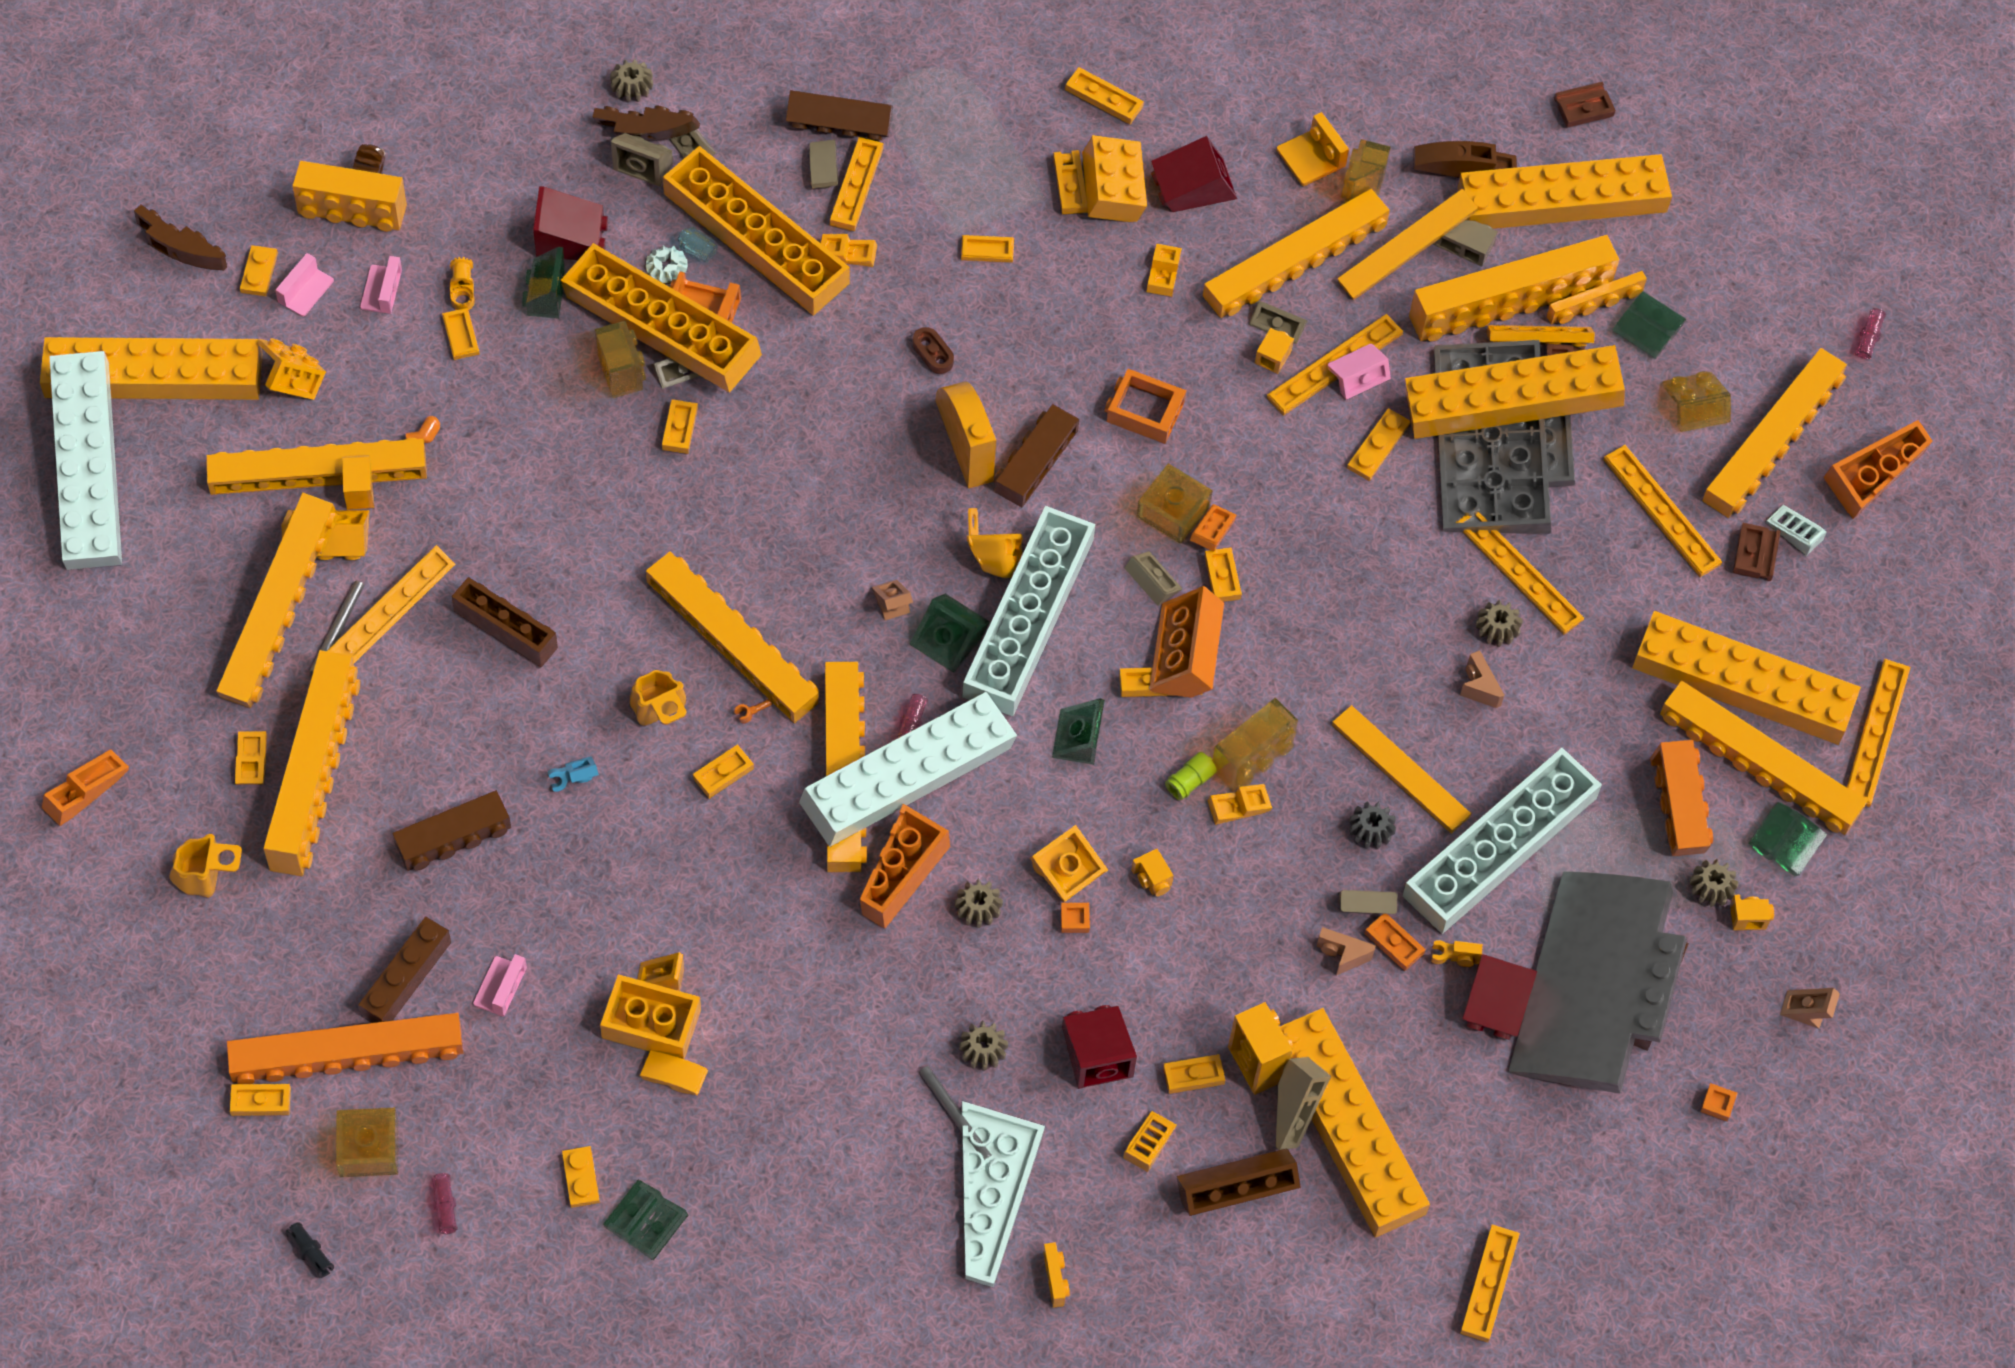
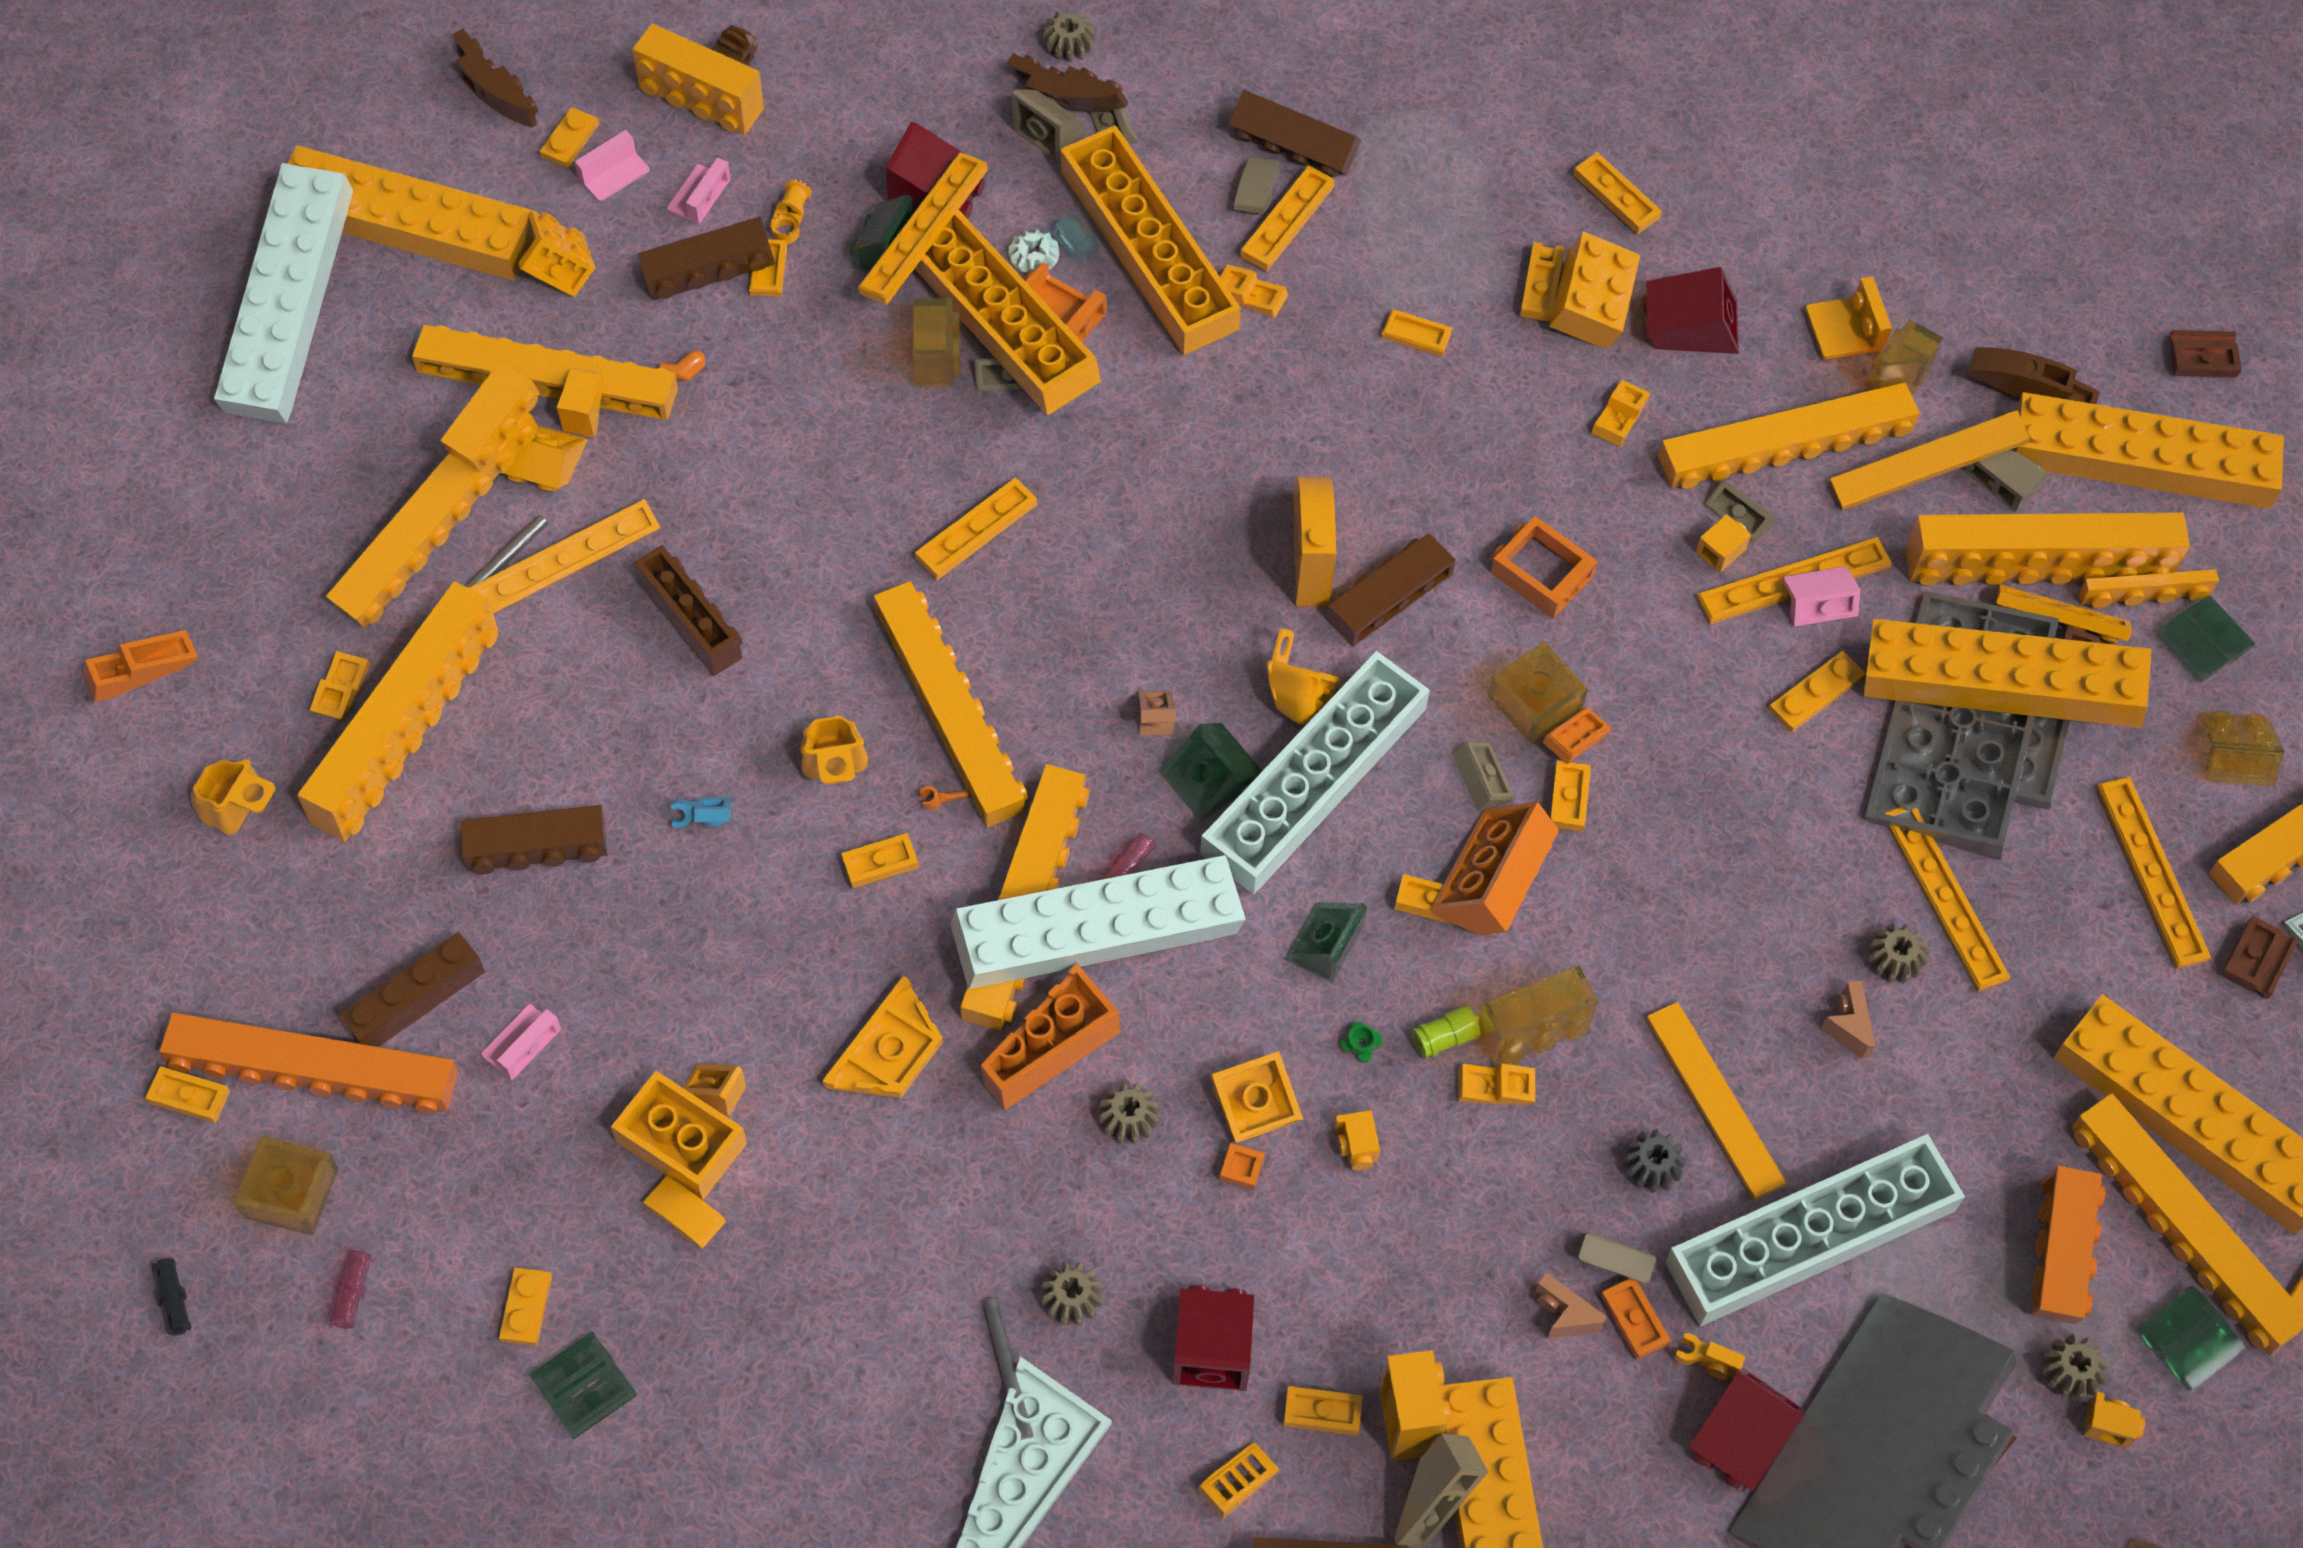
camera: 20 degrees right, 0 degrees up
(304, 513) = (490, 416): none -> light orange brick
(411, 340) = (706, 258): none -> reddish brown brick
(579, 270) = (923, 228): none -> light orange tile
(679, 426) = (979, 440): light orange plate -> none
(702, 496) = (976, 528): none -> light orange plate
(782, 908) = (889, 1048): none -> light orange wing
(934, 351) = (1311, 434): copper plate -> none
(1130, 794) = (1361, 1032): none -> green plate

